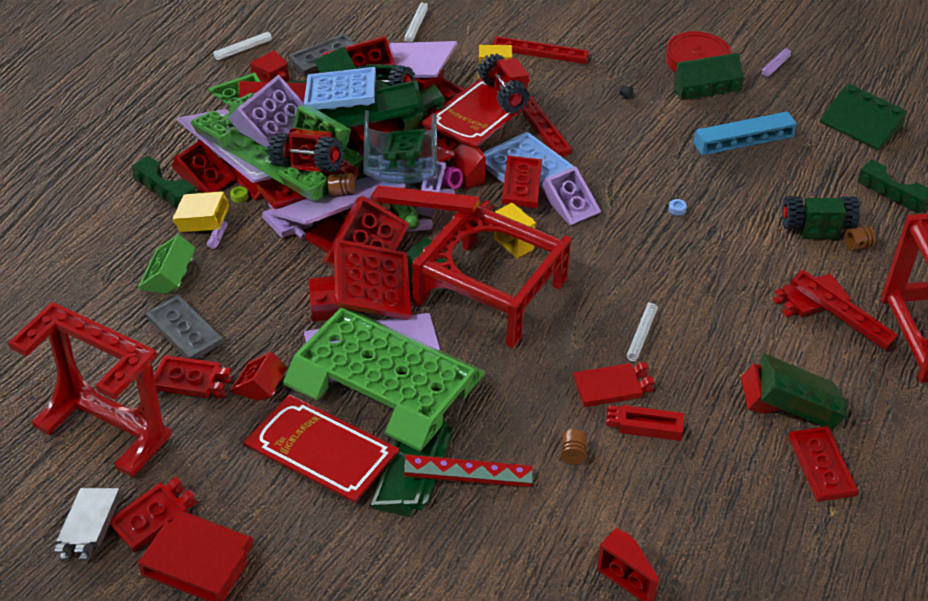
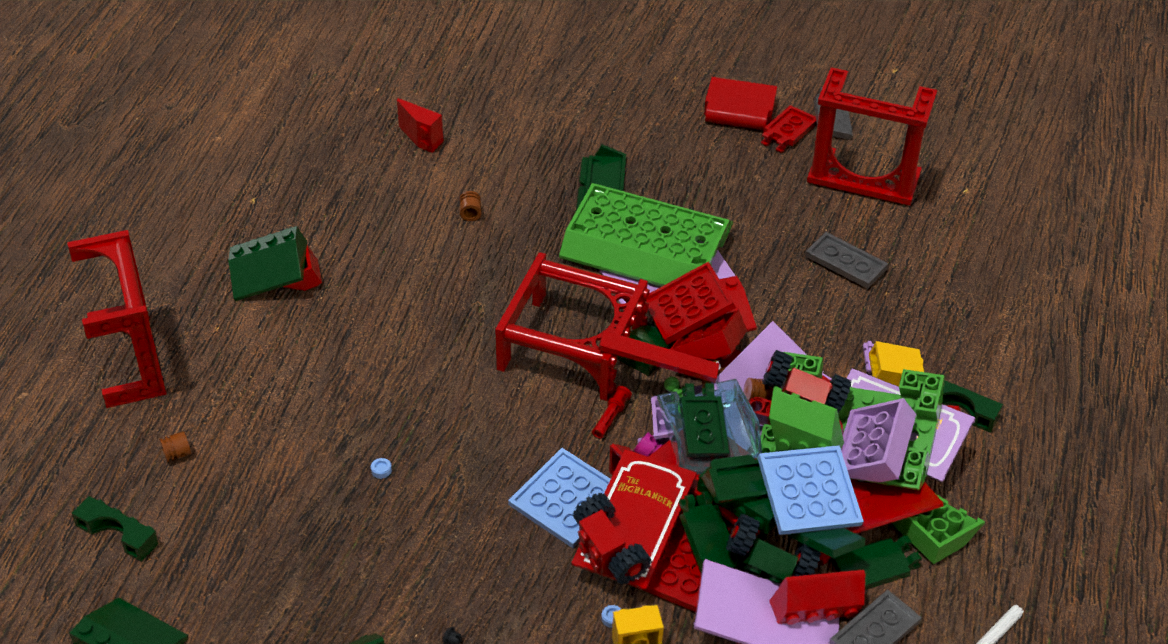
camera: 170 degrees right, 0 degrees up
(167, 266) = (896, 311): bright green slope -> none
(191, 377) = (815, 222): red tile -> none
(260, 377) = (756, 224): red slope -> none
(269, 67) = (931, 590): red torso -> none
(322, 447) = (681, 185): red piece -> none
(468, 471) = (554, 179): tile -> none
(513, 245) = (559, 387): yellow brick -> none
(522, 181) = (564, 457): red tile -> none
(546, 129) = (559, 568): red tile -> none
(570, 196) = (507, 454): lavender slope -> none
(612, 383) = (441, 268): red tile -> none
(641, 330) = (420, 310): white piece -> none
(646, 422) = (409, 238): red hinge -> none
(744, 133) = (293, 583): dark azure brick -> none
(800, 303) = (241, 379): red tile -> none
(820, 216) = (215, 455): brick -> none
(822, 464) = (252, 221): red tile -> none
(844, 309) = (212, 357): red plate -> none

